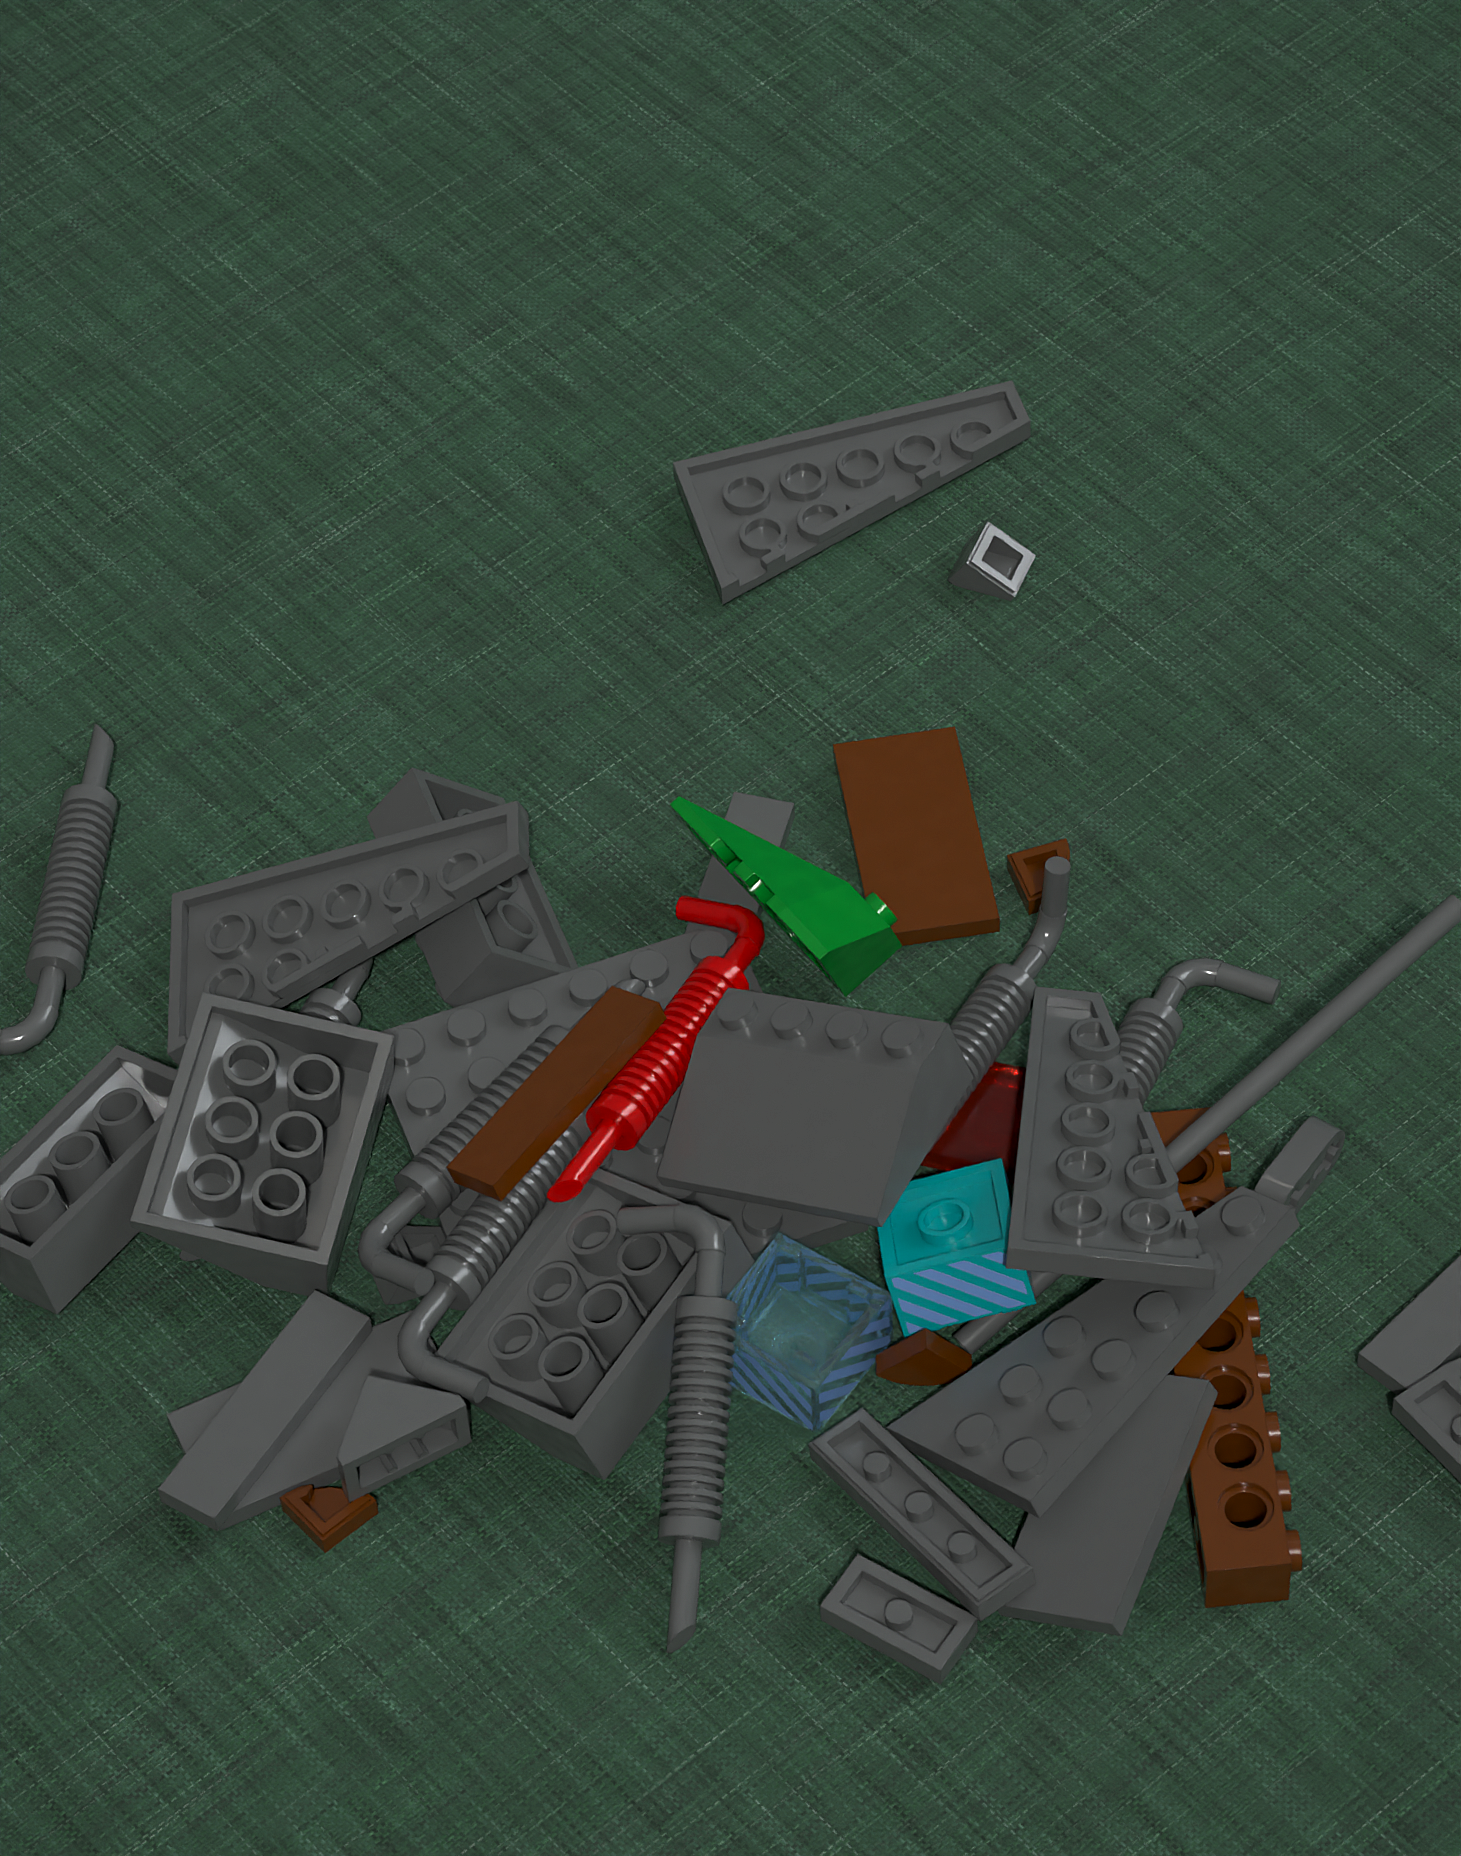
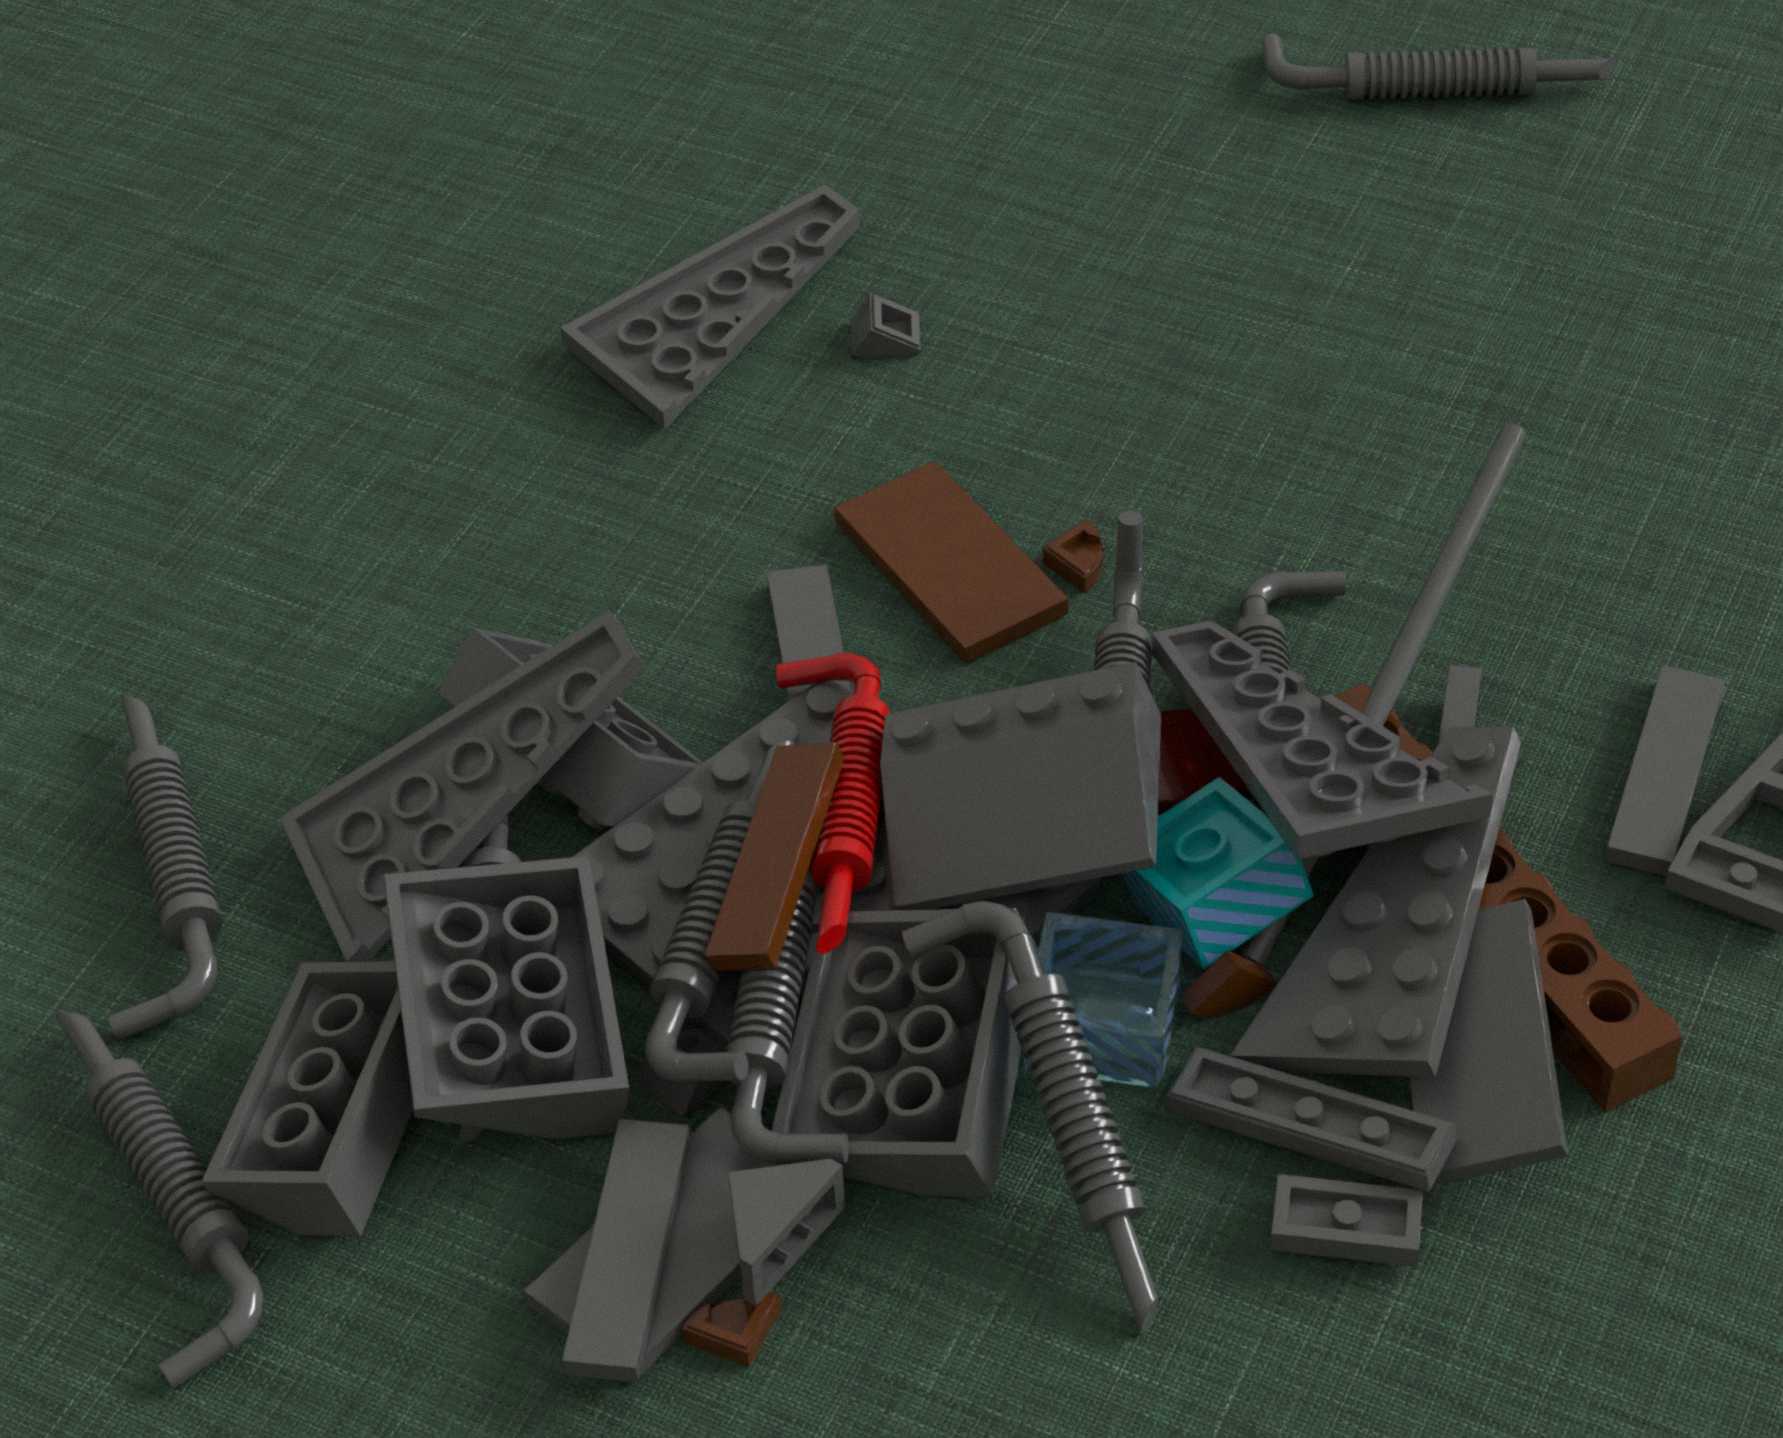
camera: 25 degrees left, 5 degrees down
(816, 909) = (904, 635): green wedge -> none

